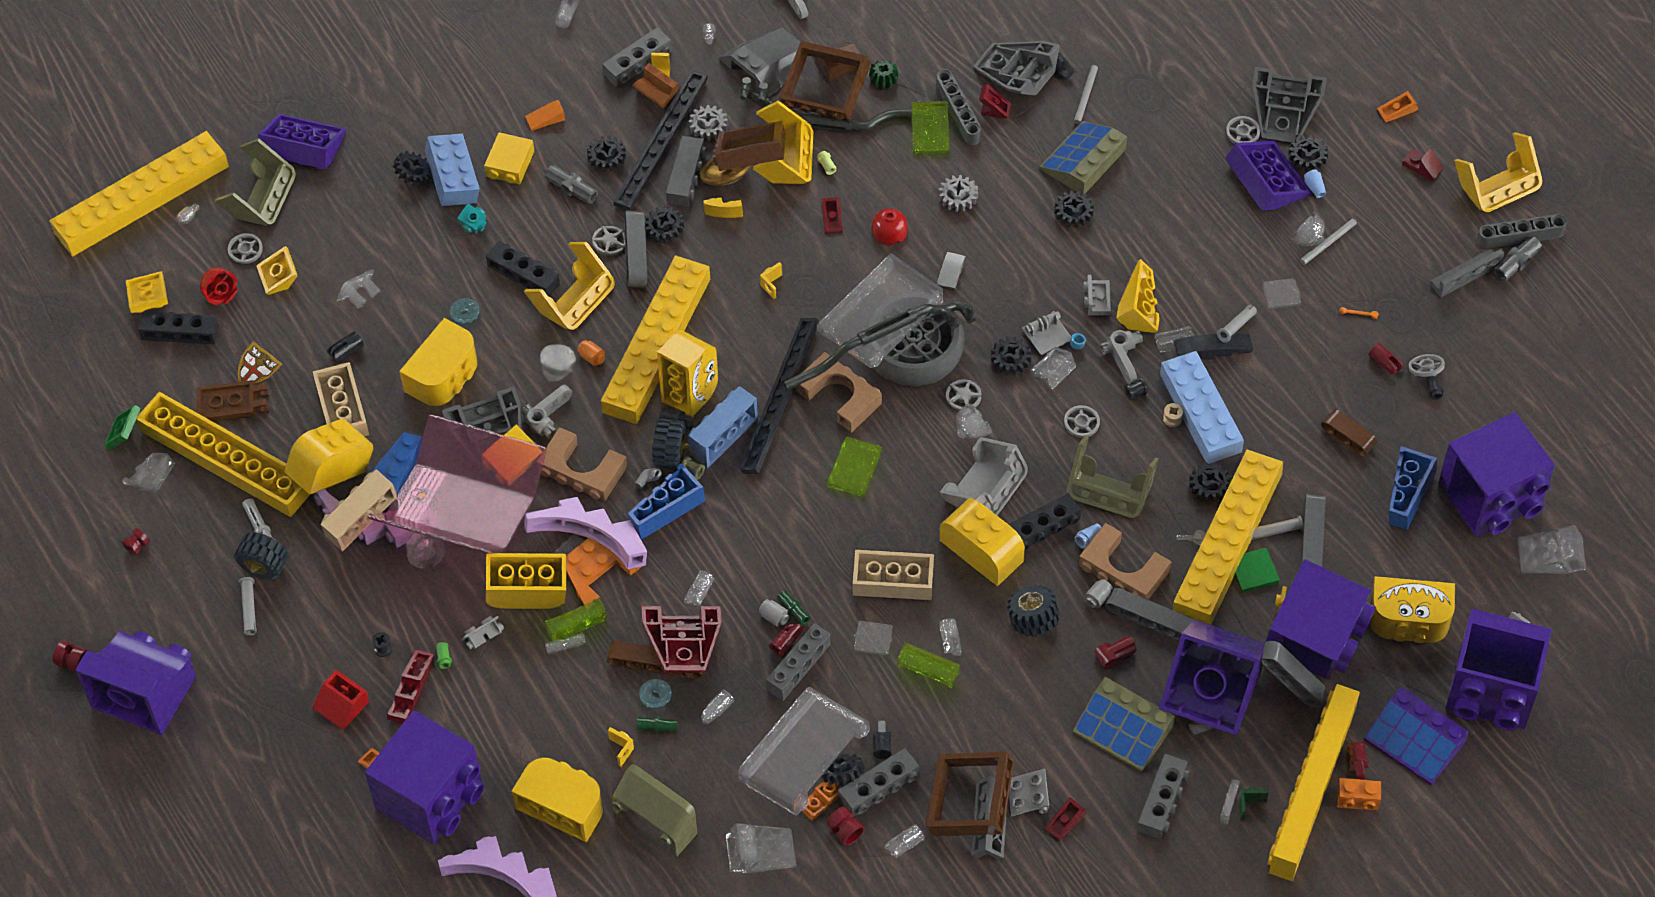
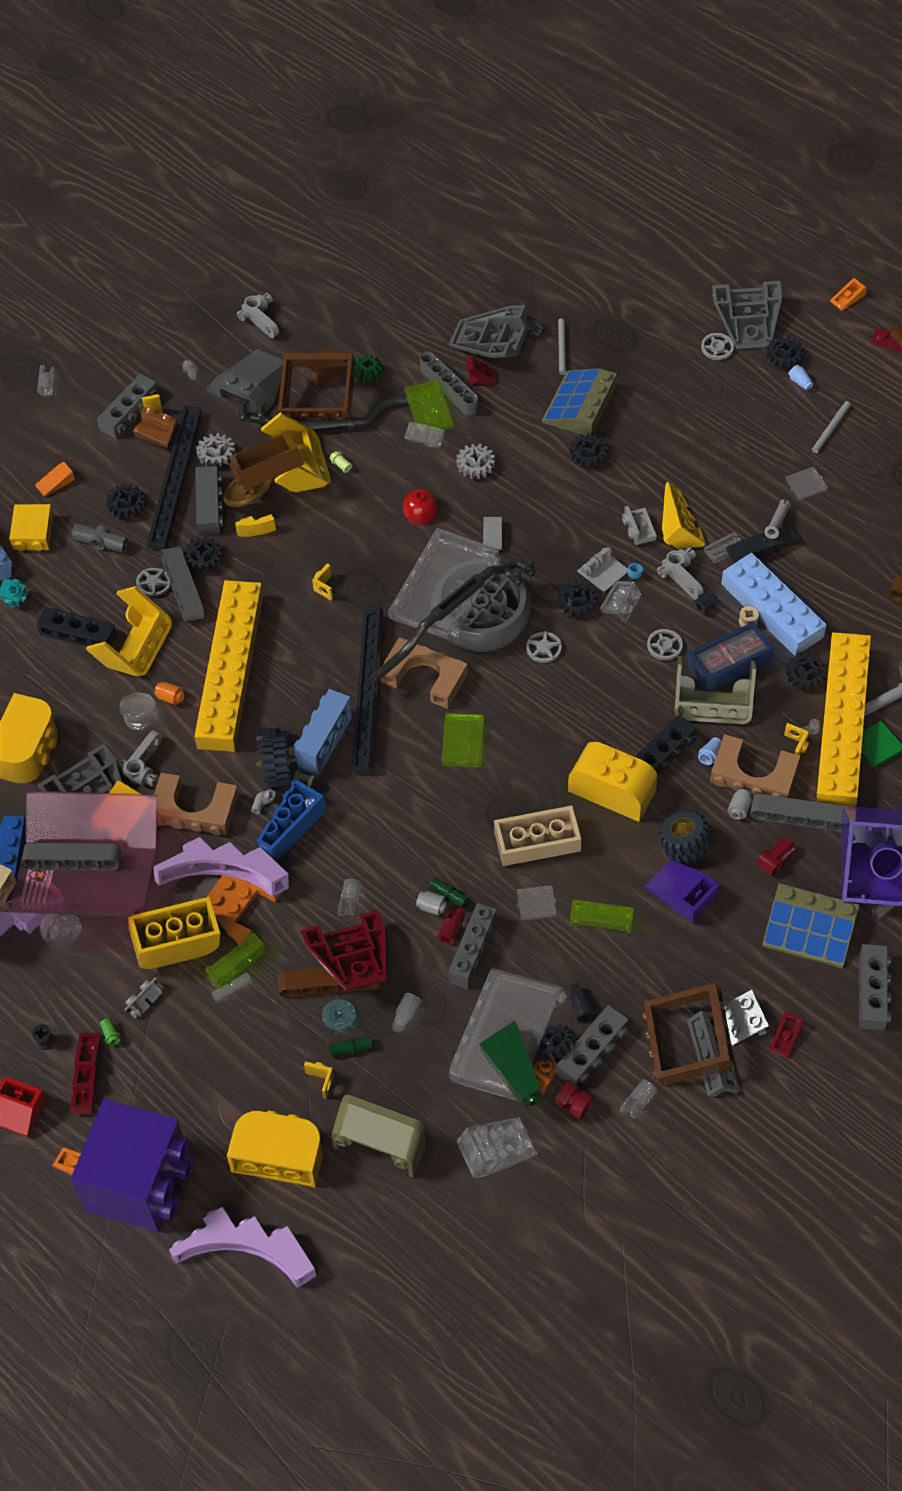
camera: 15 degrees left, 0 degrees up
(453, 485) = (71, 856): none -> dark grey beam
(463, 305) = (26, 677): clear light blue gear -> none
(687, 372) = (273, 688): yellow brick -> none
(795, 774) = (511, 1062): none -> dark green slope
(832, 215) = (361, 508): dark red slope -> none
(917, 154) = (424, 434): none -> clear slope
(950, 636) = (612, 882): clear hinge -> none
(970, 424) = (563, 671): clear cylinder -> none
(992, 477) = (598, 717): light grey windscreen -> none
(1015, 660) = (684, 889): none -> dark purple slope
(1136, 447) = (729, 656): none -> brick
(1182, 546) = (802, 738): none -> yellow bracket
(1267, 174) = (754, 379): dark purple slope -> none
(1310, 231) = (813, 420): clear cylinder -> none
(1374, 314) = (897, 483): orange hinge -> none

